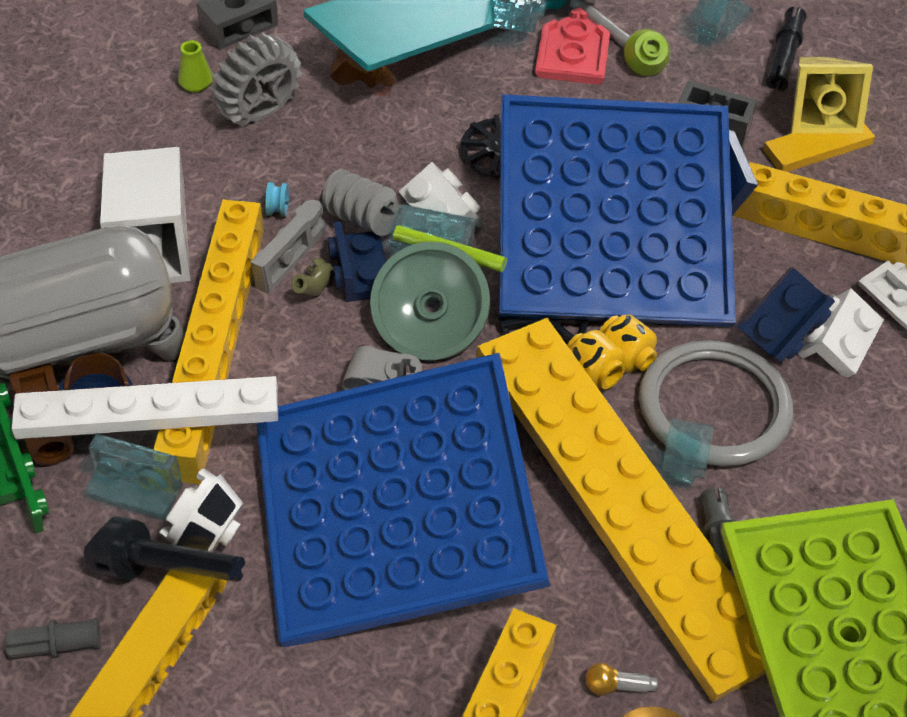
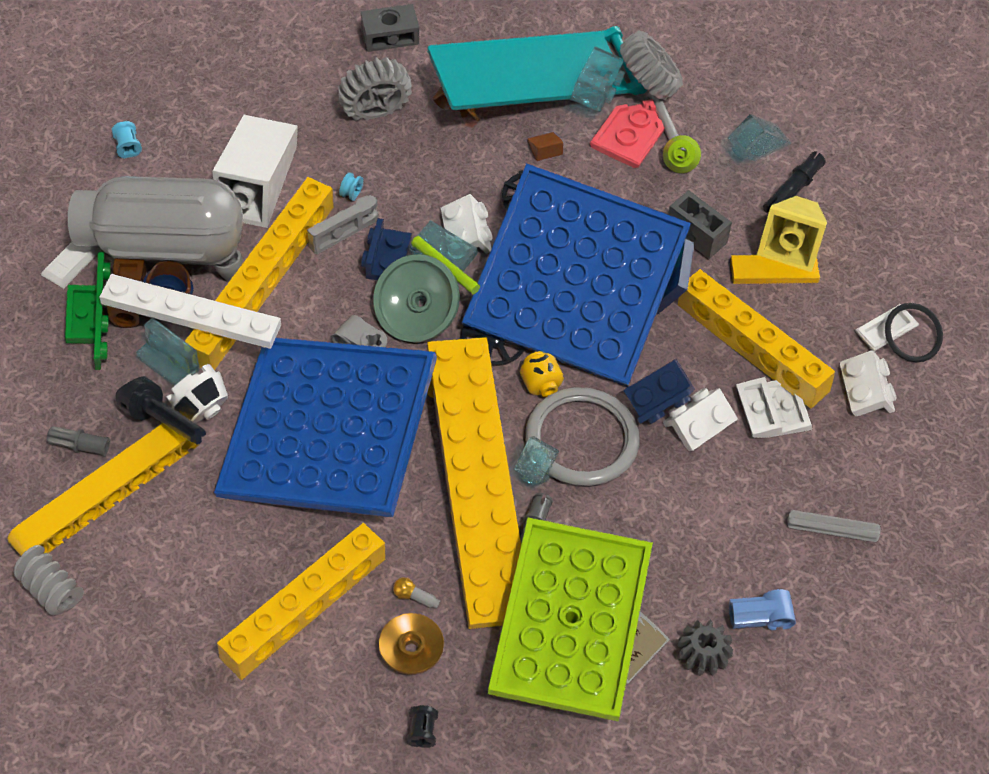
camera: 20 degrees right, 5 degrees up
(193, 69) = (337, 63): lime cone -> none
(314, 284) = (348, 258): olive arm -> none
(360, 202) = (404, 208): light grey piece -> none
(486, 89) = (546, 146): none -> dark orange slope
(599, 357) = (511, 378): yellow head -> none

